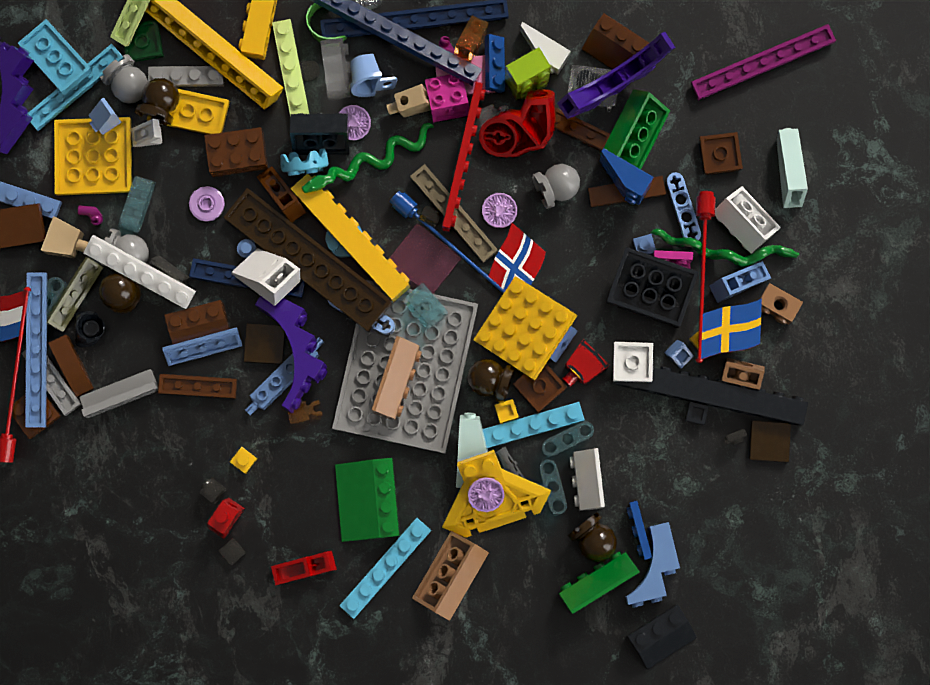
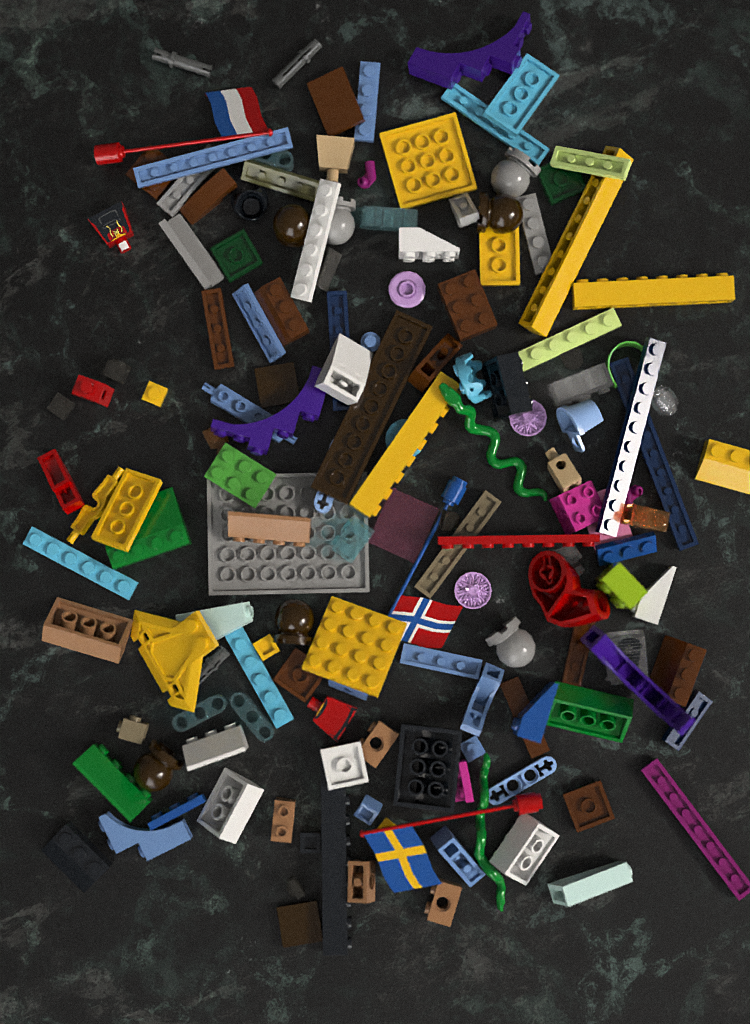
camera: 75 degrees right, 5 degrees up
(75, 461) = (114, 226): none -> torso
(103, 117) = (468, 162): light blue slope -> none
(133, 353) = (236, 255): none -> dark green tile
(168, 178) = (420, 244): none -> white slope
(340, 396) = (240, 475): none -> bright green plate
(341, 548) = (89, 514): none -> yellow piece
(346, 509) = (126, 510): none -> yellow plate
(485, 494) = (173, 647): lavender wheel -> none
(553, 554) = (132, 729): none -> dark tan brick
(557, 254) = (441, 661): none -> medium blue plate
(599, 225) = (481, 699): none -> medium blue arch
(617, 319) = (387, 736): none -> medium nougat brick
(646, 480) = (230, 806): none -> white slope
(670, 432) = (283, 820): none -> medium nougat brick
(675, 59) = (696, 707): none -> dark blue plate

